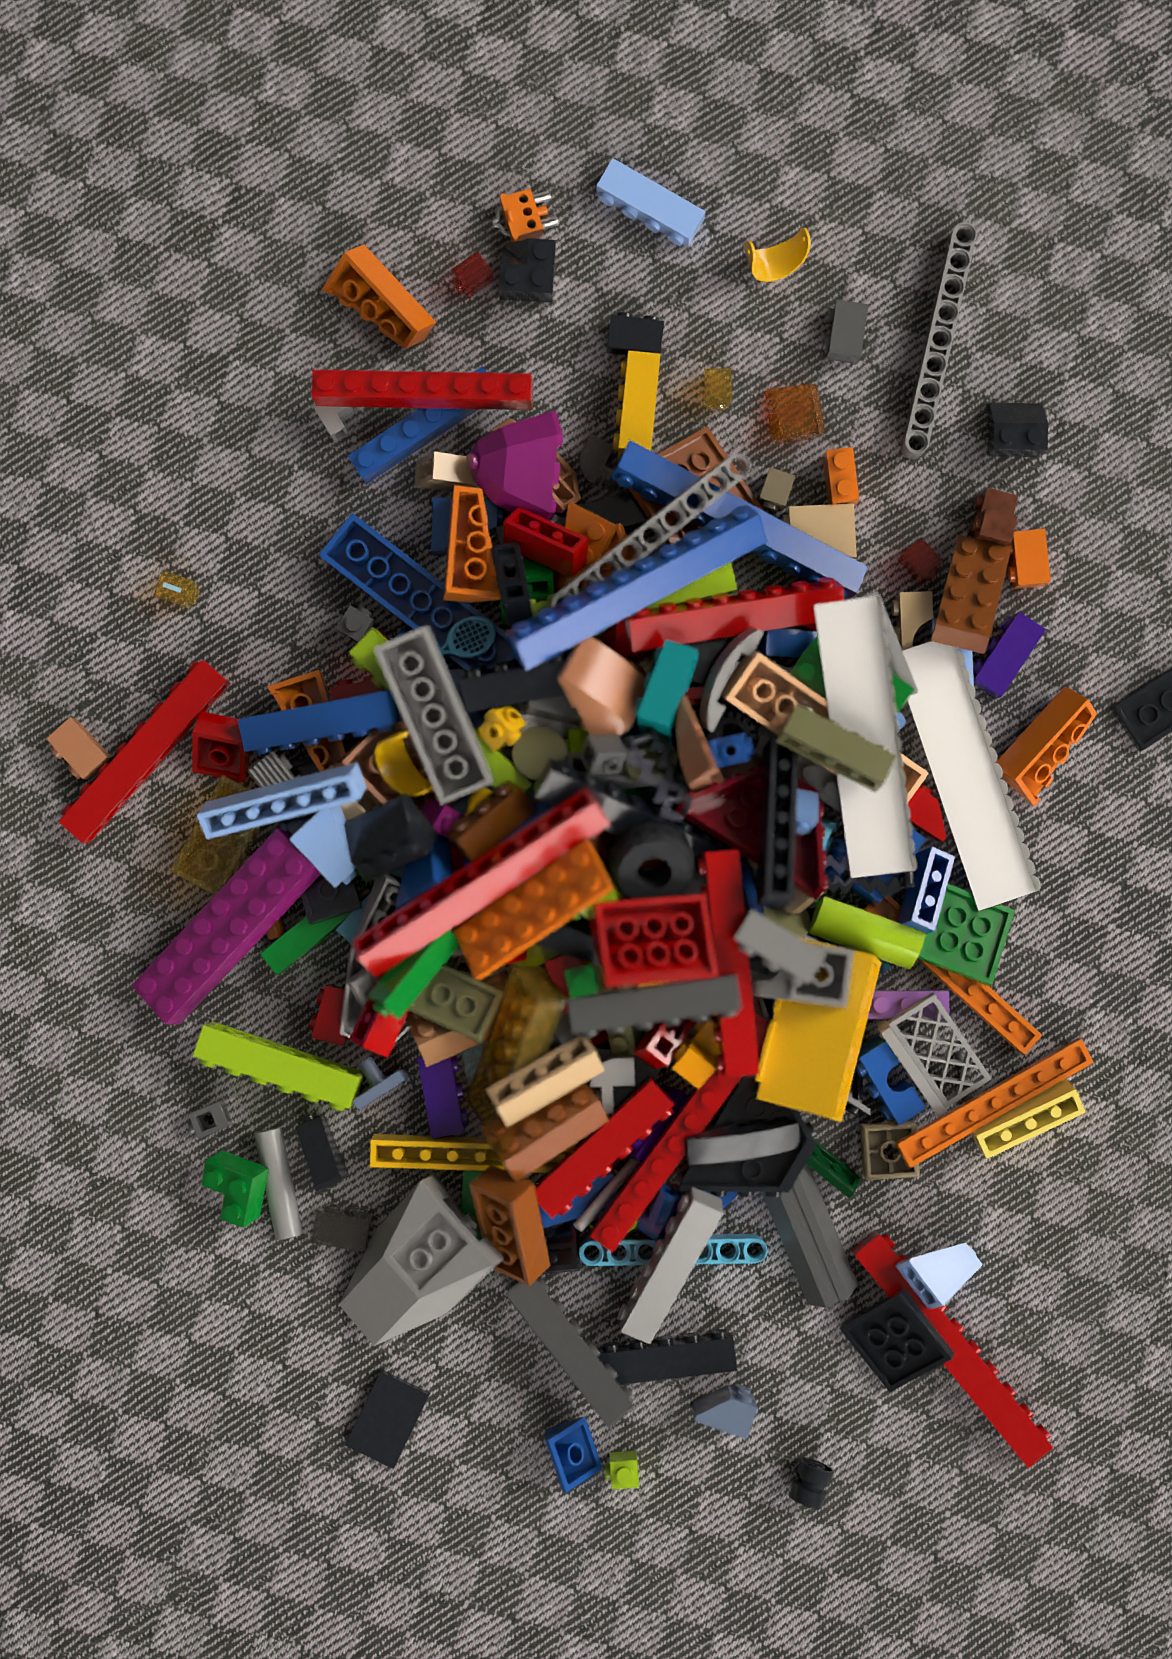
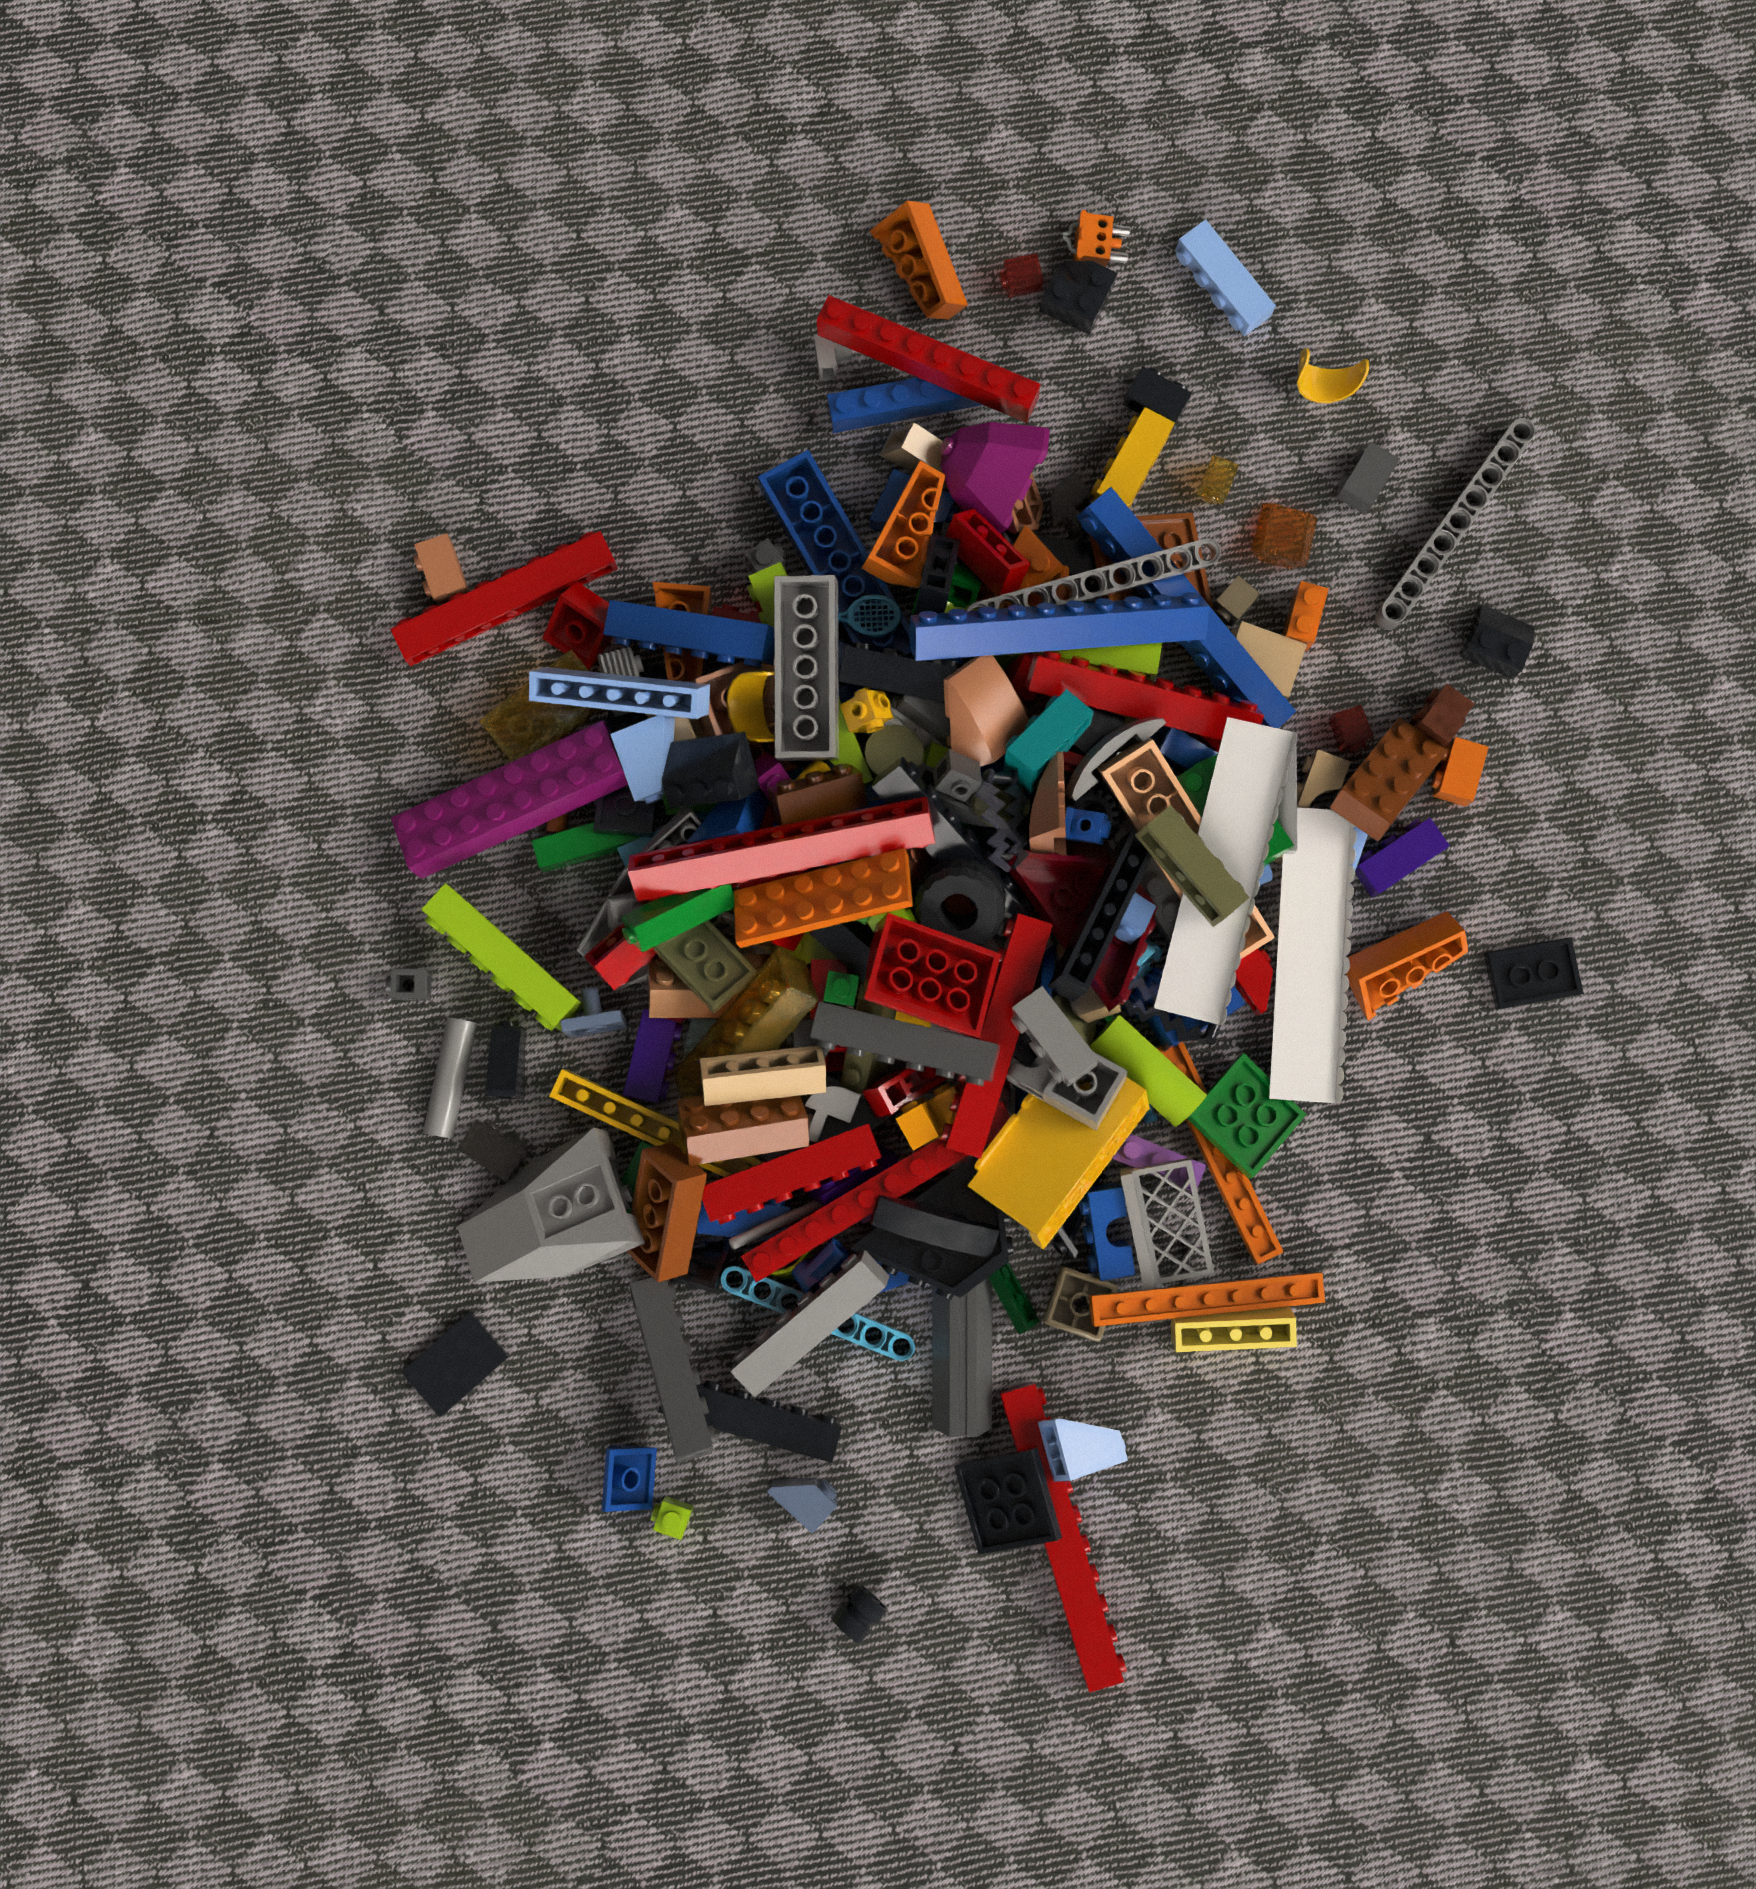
camera: 20 degrees right, 5 degrees down
(177, 590) = (604, 456): clear yellow brick -> none
(240, 1182) = (413, 1062): green brick -> none
(327, 1022) = (567, 937): red brick -> none
(924, 902) = (1220, 1061): blue brick -> none

